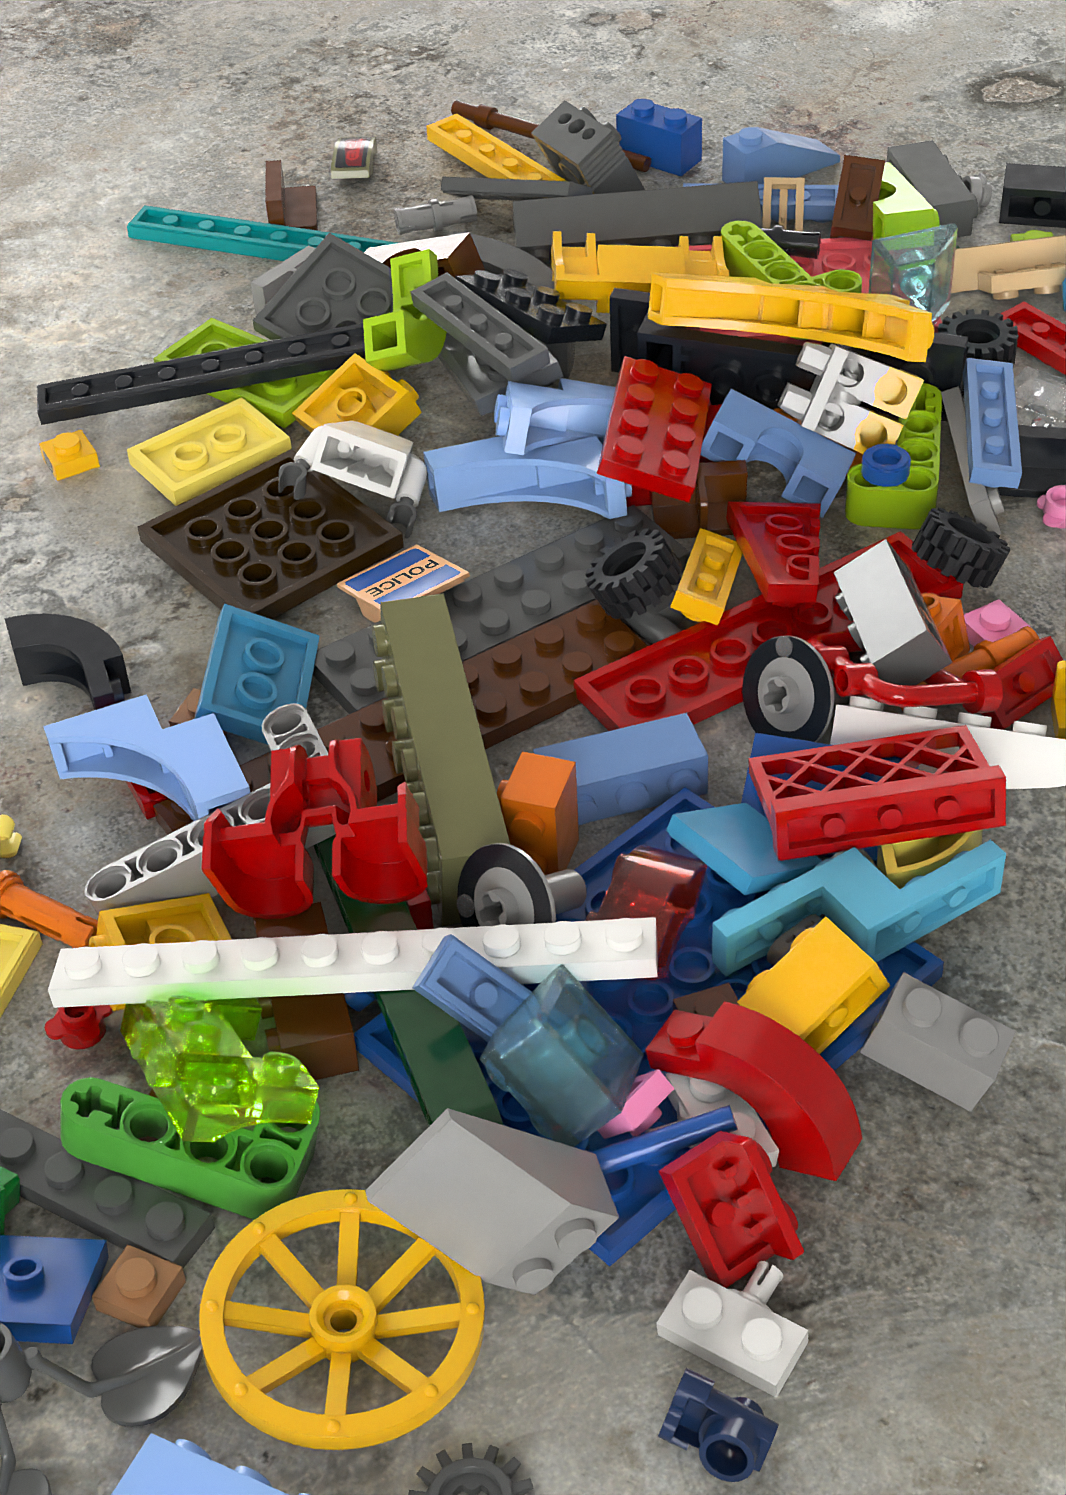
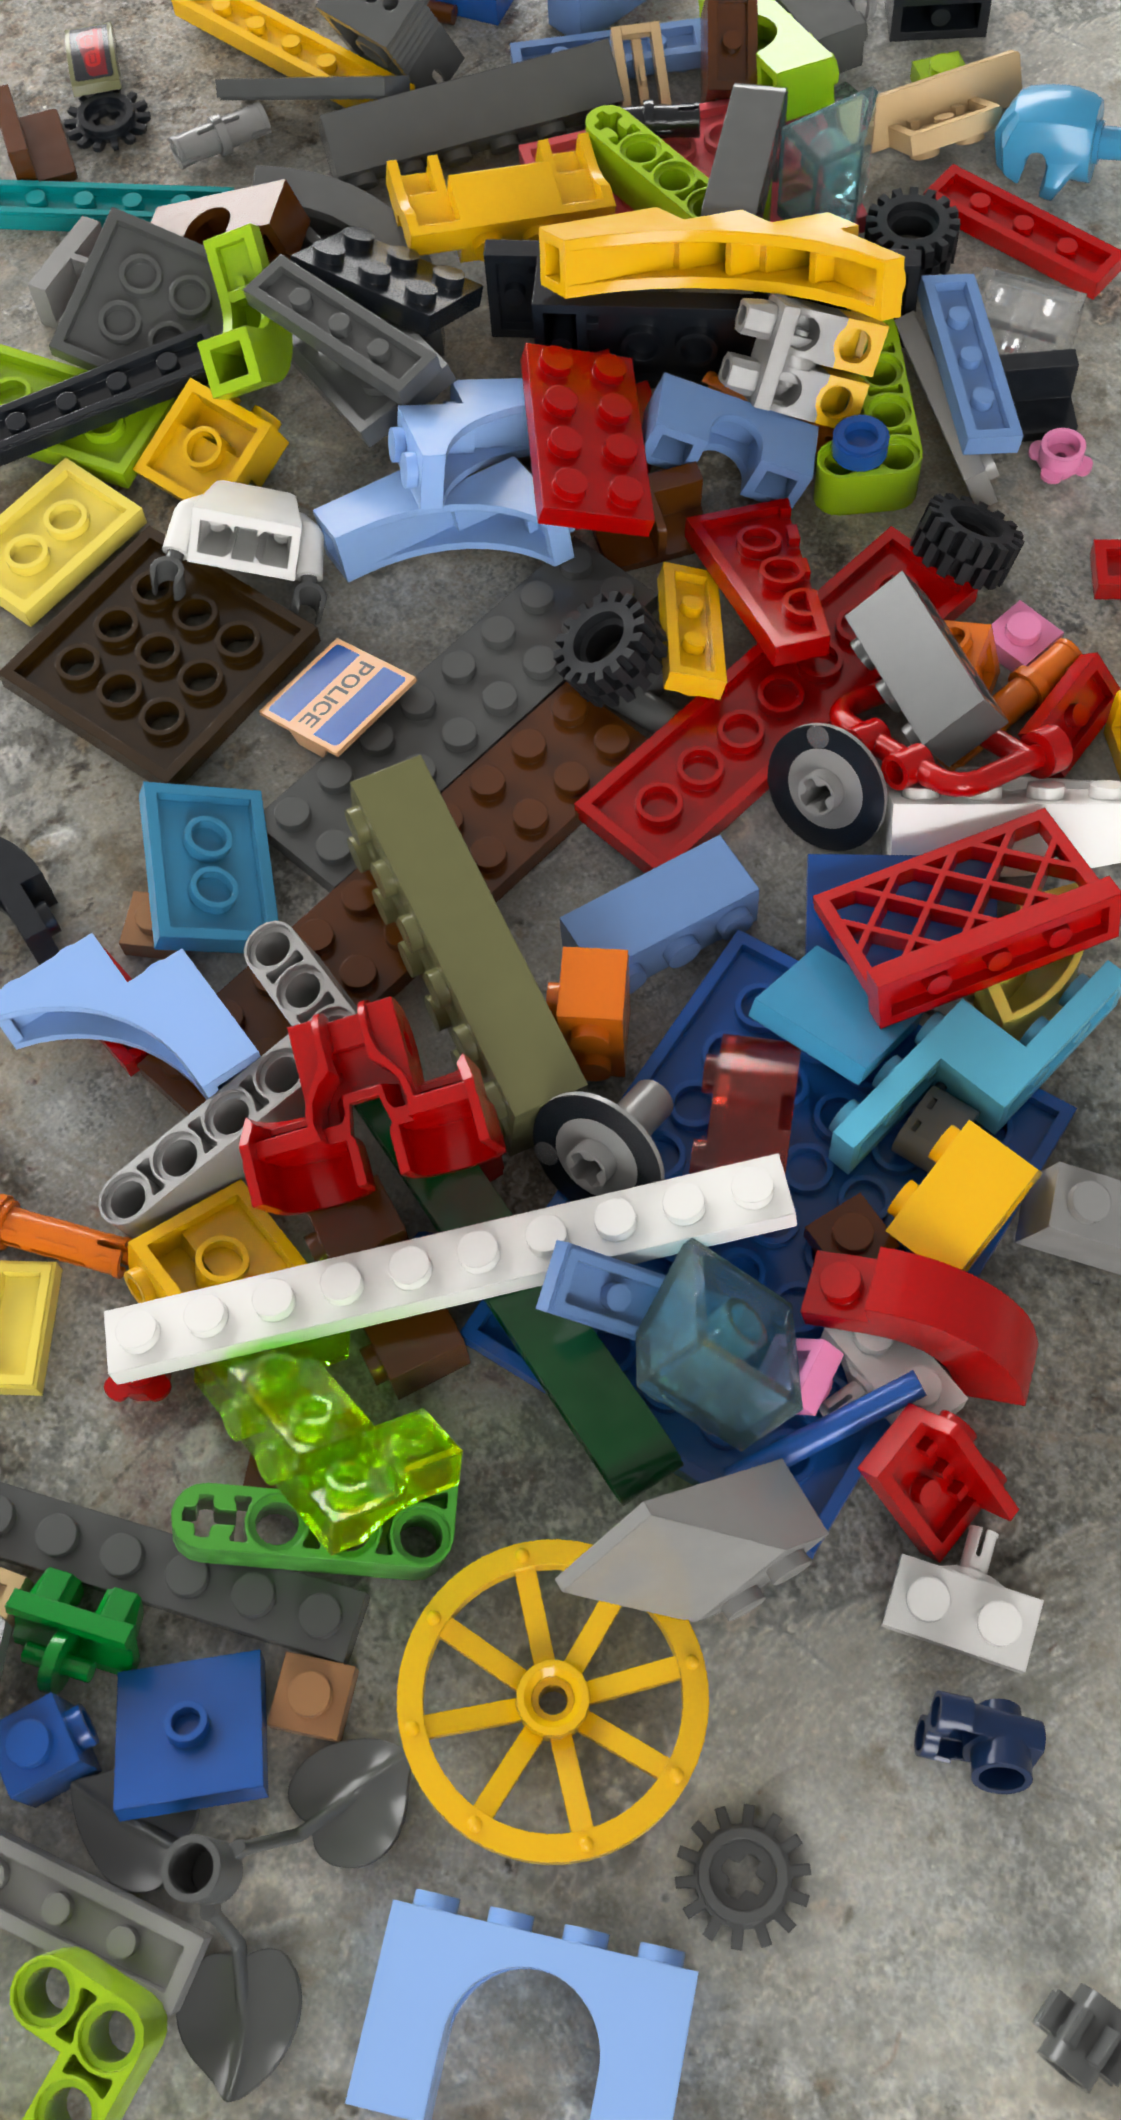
camera: 10 degrees left, 20 degrees up
(366, 195) = (86, 122): none -> black gear
(844, 254) = (747, 150): none -> dark grey beam

